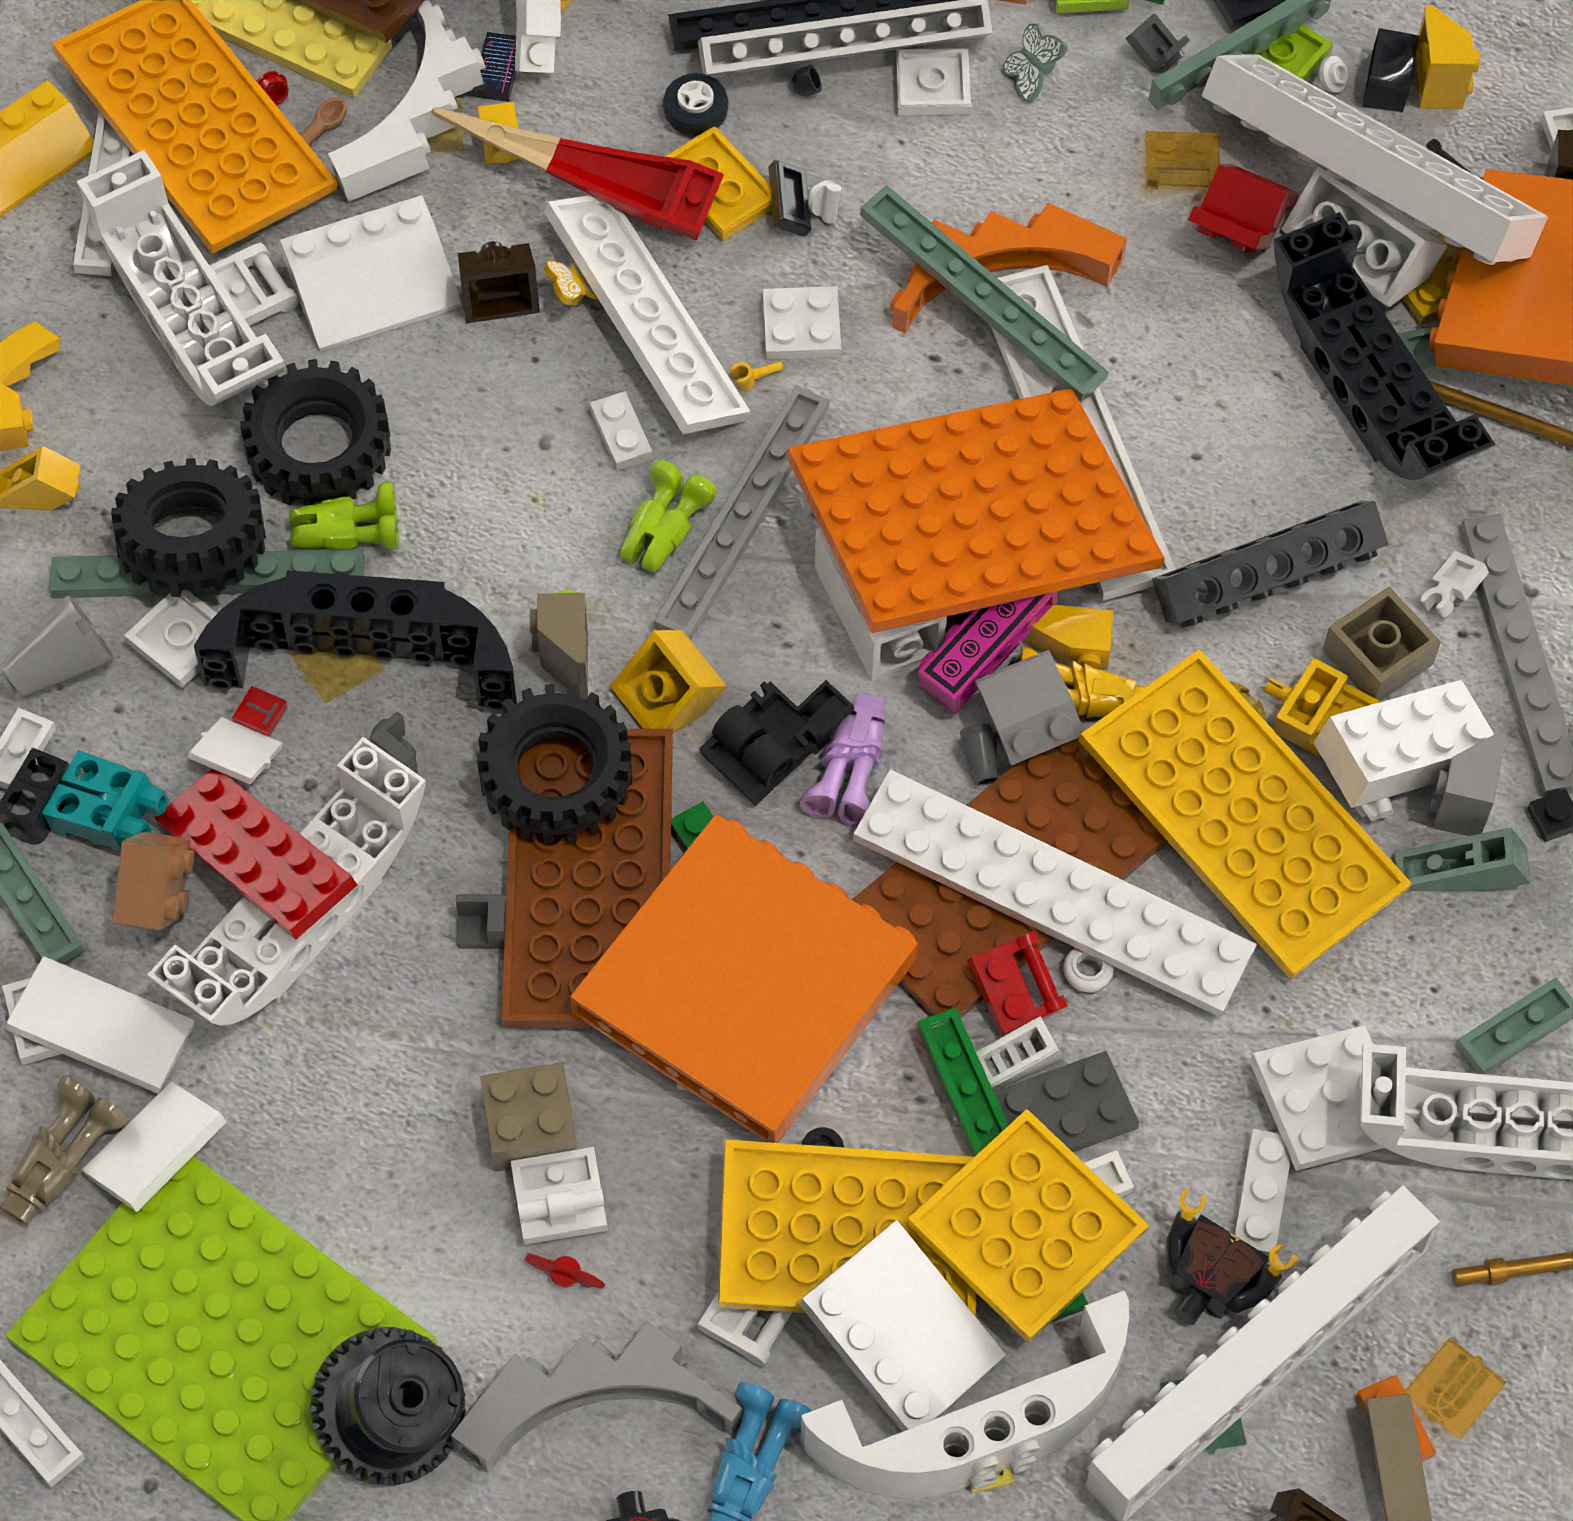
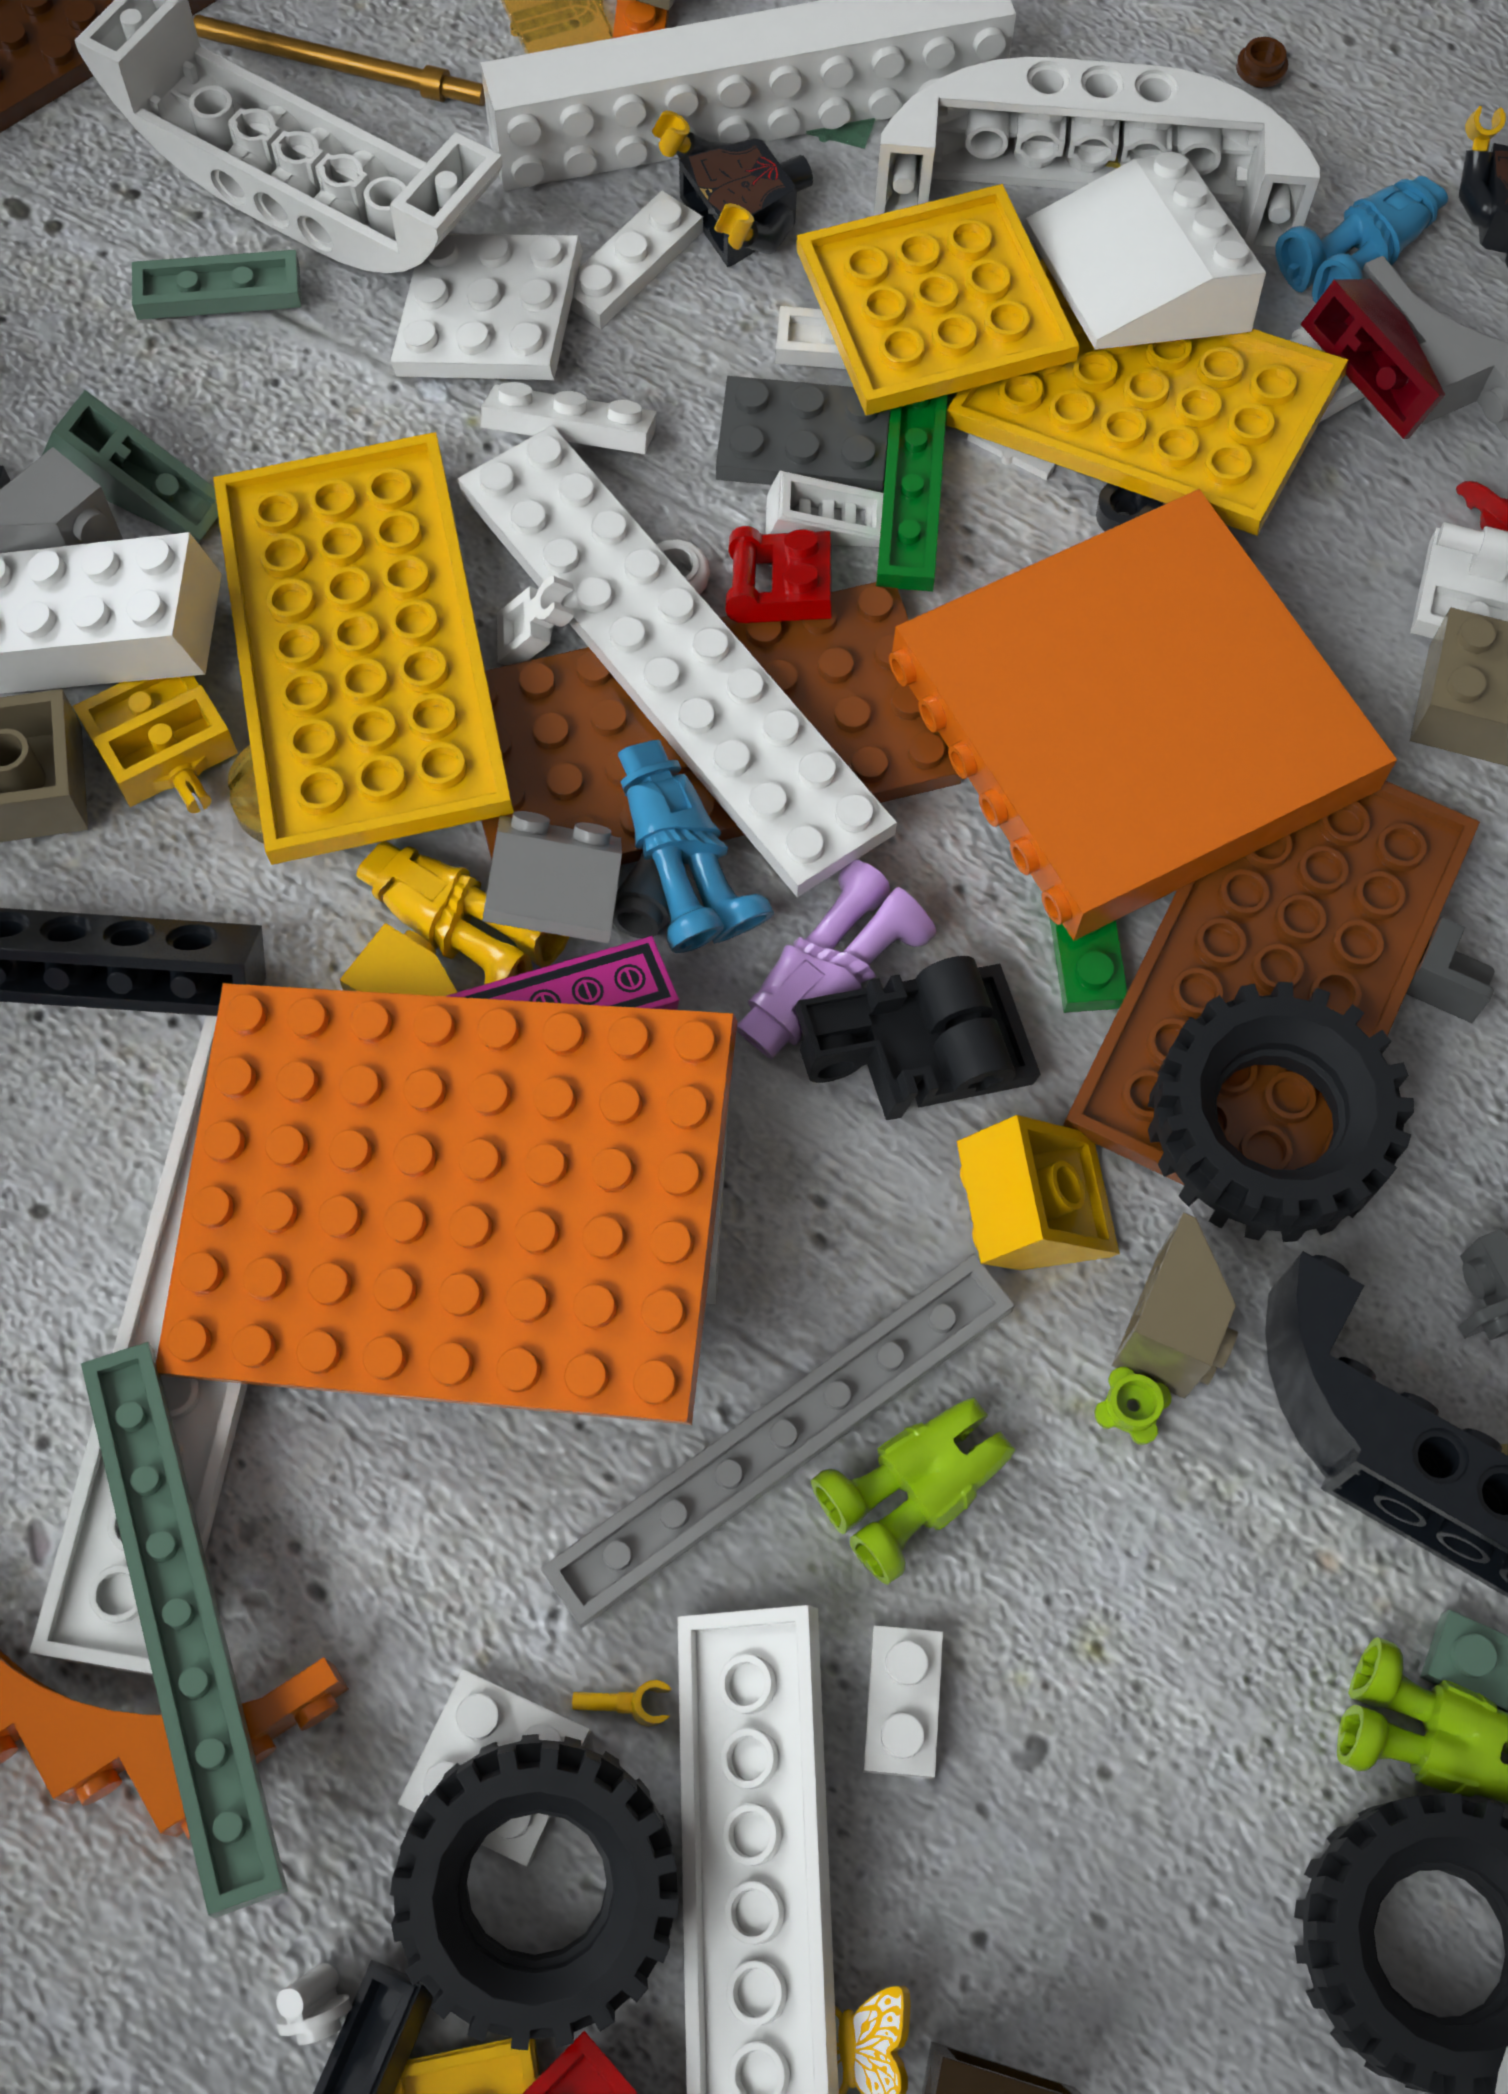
camera: 155 degrees left, 5 degrees up
(708, 1336) = (1381, 350): none -> dark red slope
(743, 237) = (552, 1990): none -> black tyre
(980, 776) = (678, 830): none -> dark azure piece
(1150, 876) = (528, 620): none -> white plate
(1221, 1038) = (582, 421): none -> white plate

